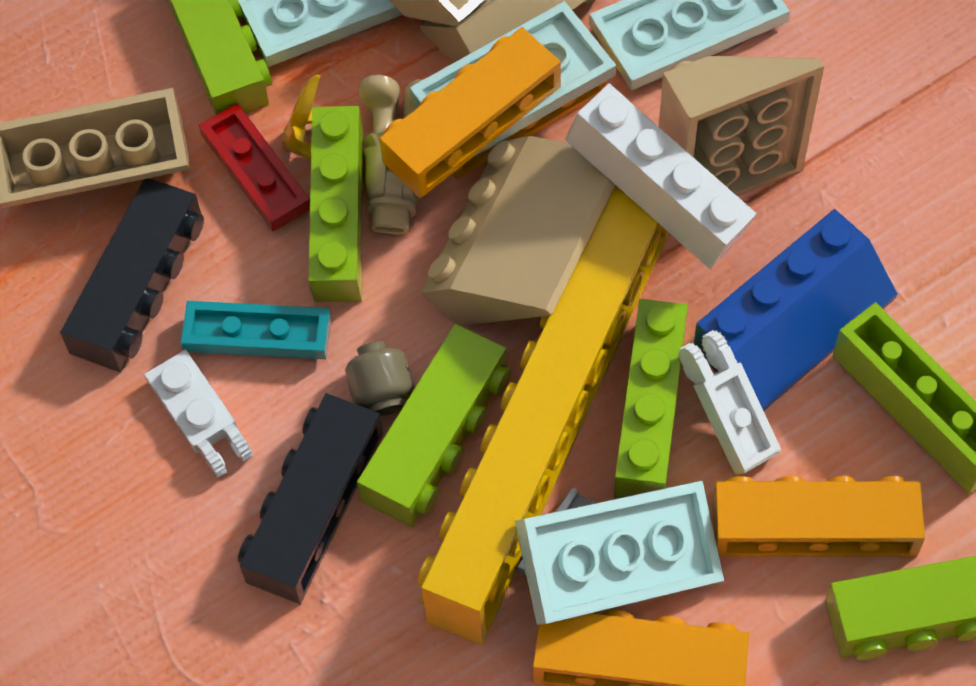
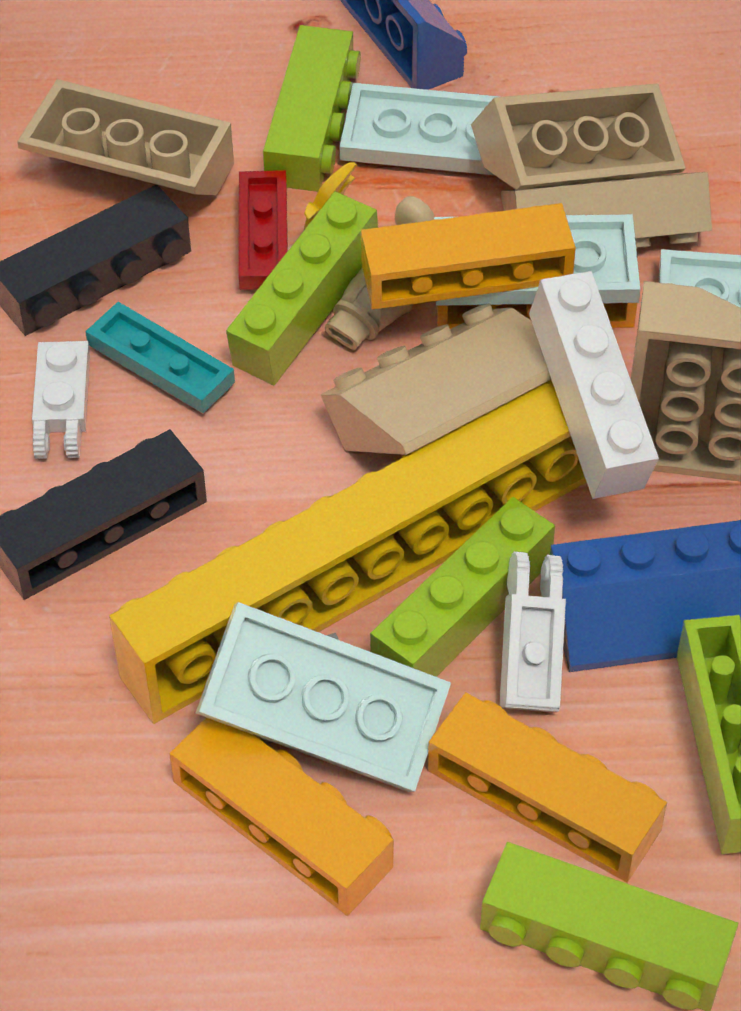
camera: 30 degrees right, 10 degrees down
(379, 378) = (232, 449): dark tan head -> none
(434, 425) = (242, 505): lime brick -> none

